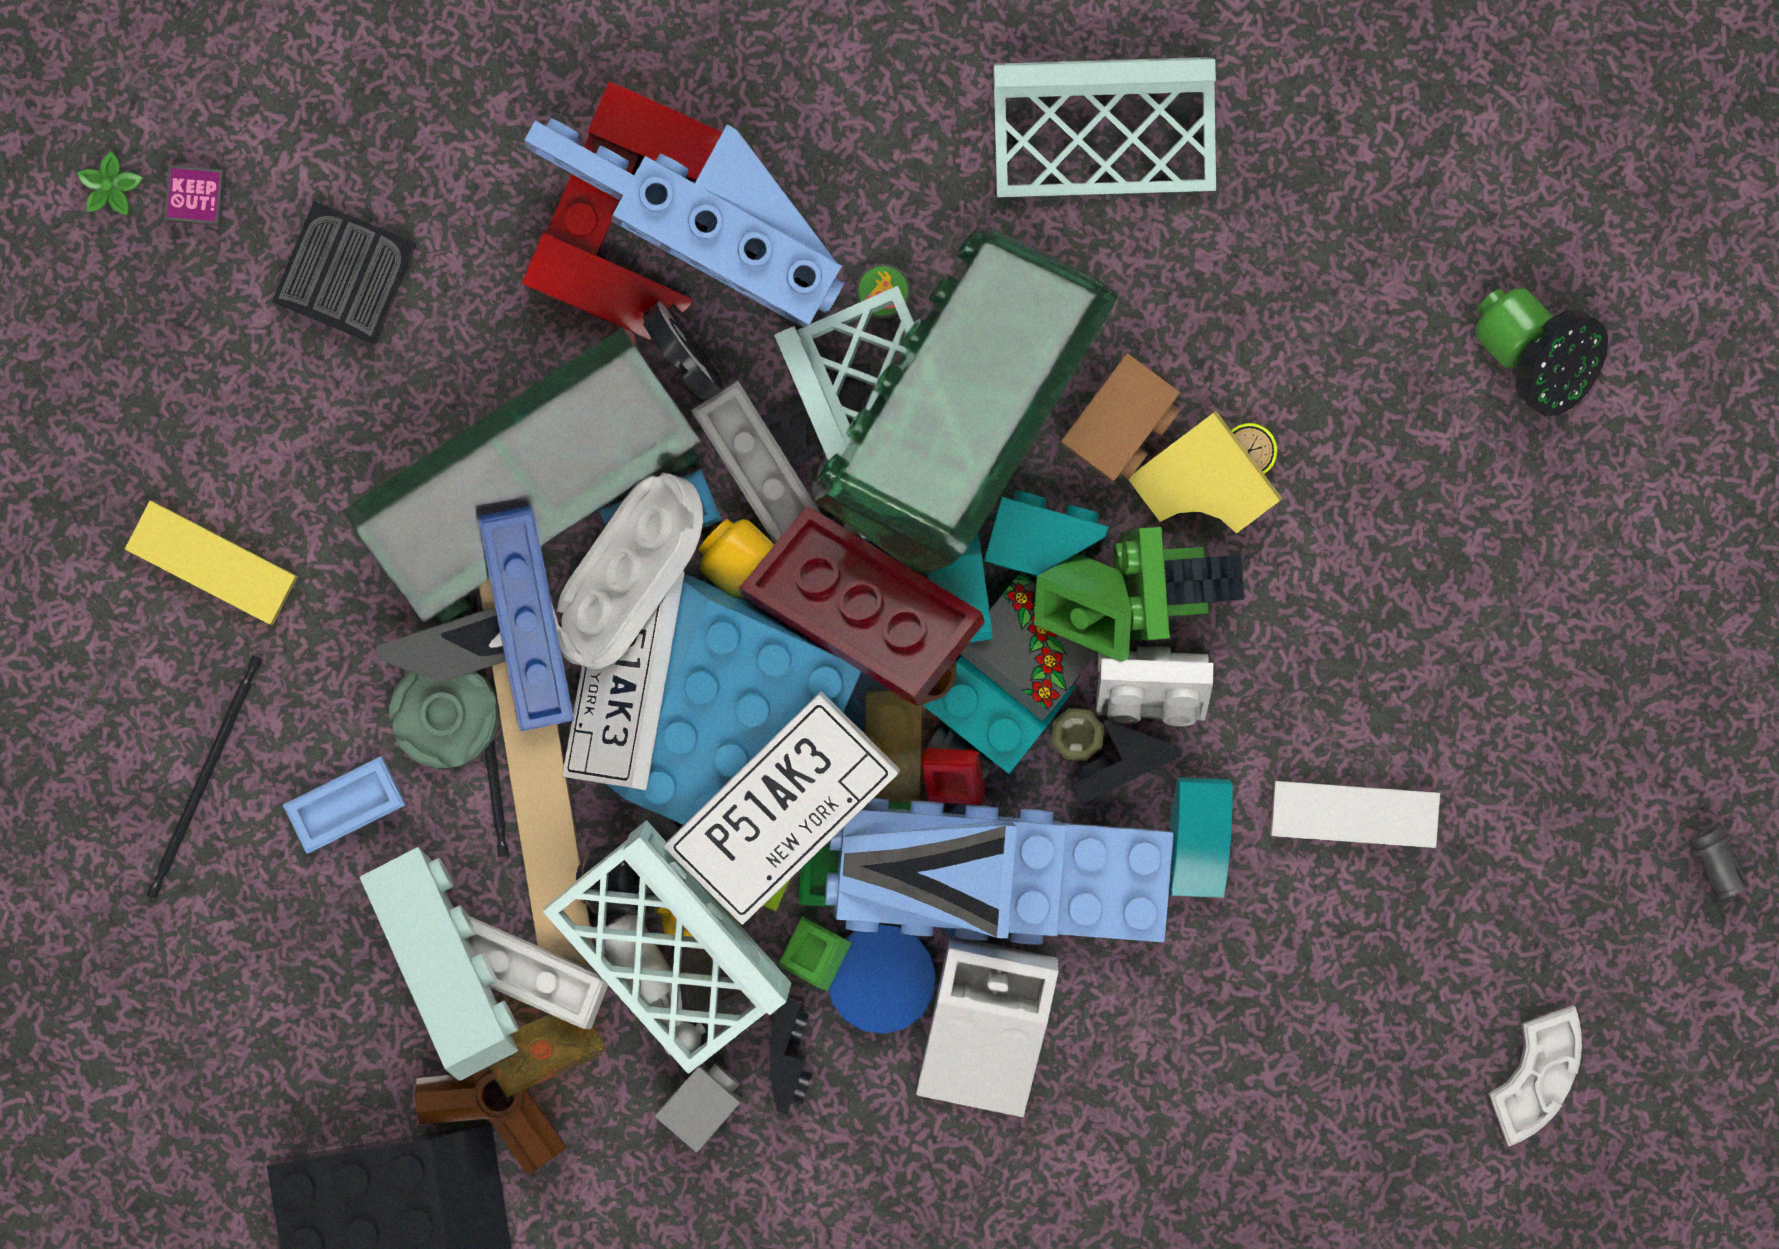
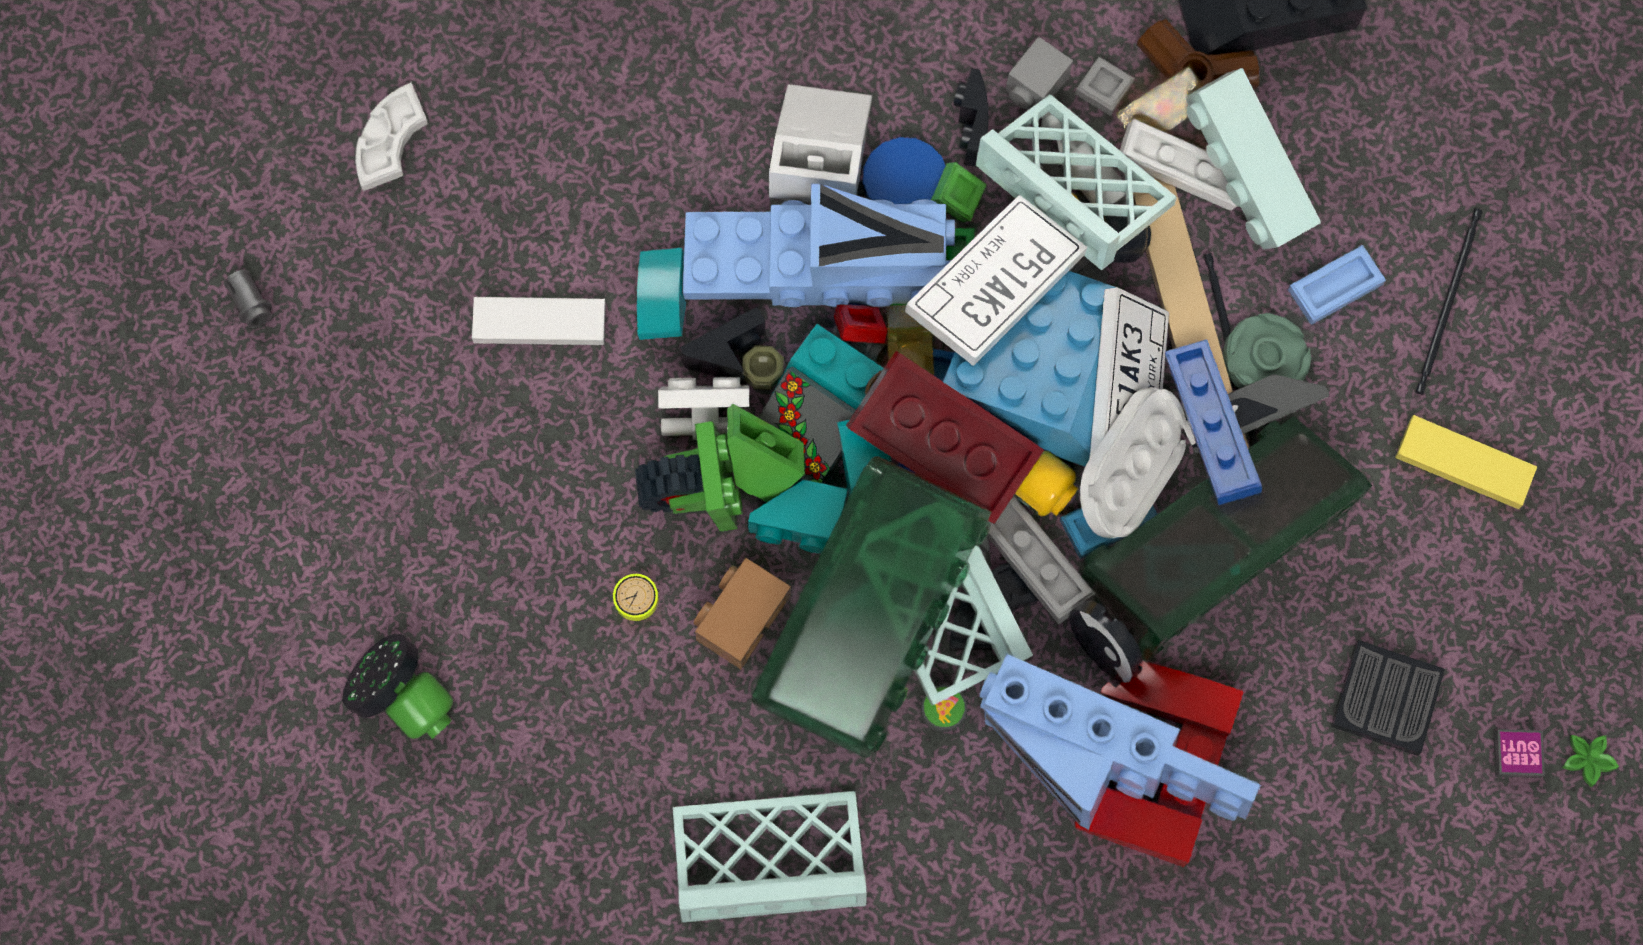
camera: 170 degrees right, 15 degrees down
(613, 1093) = (1104, 86): none -> light grey tile
(1208, 475) = (667, 572): light yellow tile -> none

